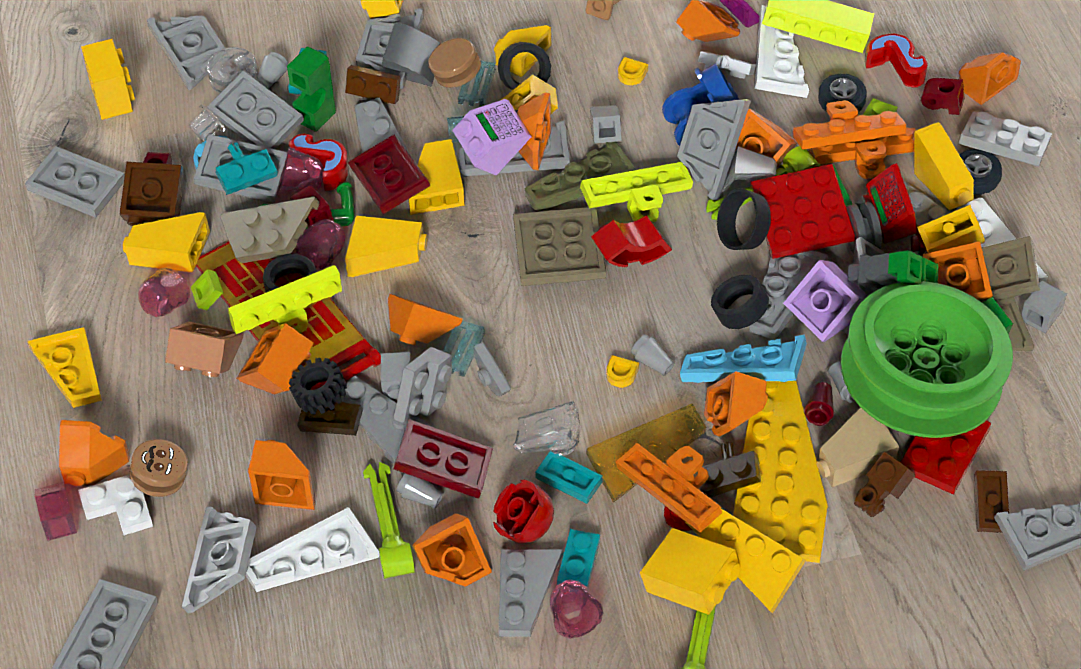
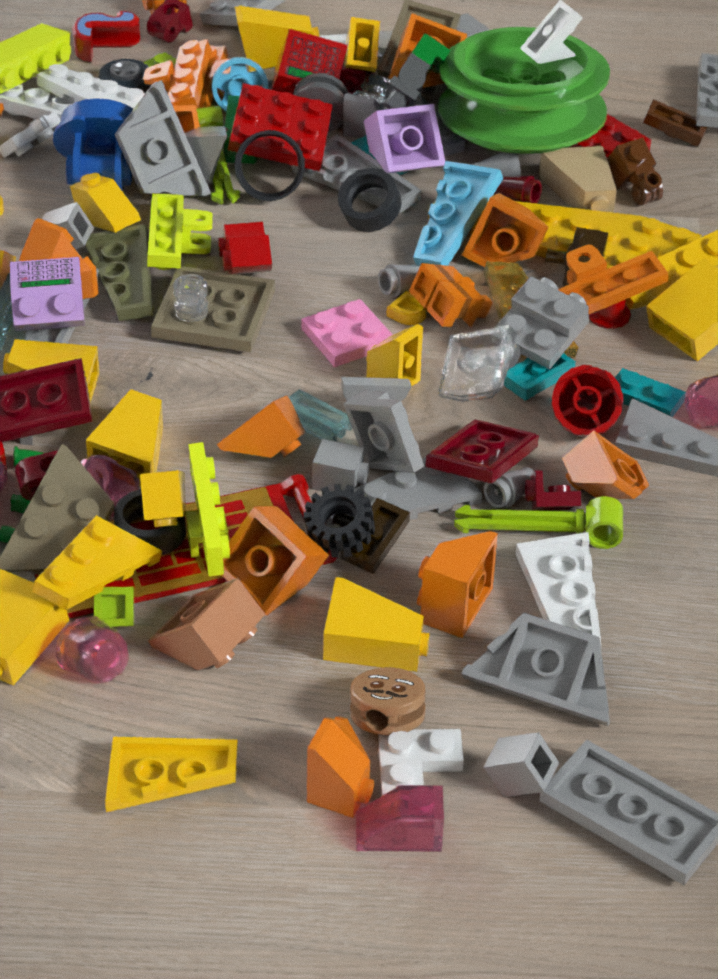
camera: 75 degrees left, 10 degrees down
(115, 560) = (521, 764): none -> light grey brick
(224, 258) = (91, 561): none -> yellow wing
(231, 439) = (372, 630): none -> yellow slope
(287, 266) = (163, 497): none -> yellow slope
(408, 517) = (556, 499): none -> dark red bracket
(531, 376) = (397, 356): none -> yellow slope
(541, 223) = (190, 297): none -> clear wheel
(572, 339) = (345, 332): none -> bright pink plate
(606, 455) = (545, 320): none -> light grey plate
(632, 387) = (448, 295): none -> orange hips
(646, 135) = (104, 203): none -> yellow slope
(798, 86) = (83, 86): none -> white wing
(859, 168) = (233, 81): none -> medium azure wheel
(956, 346) = (548, 38): none -> white slope

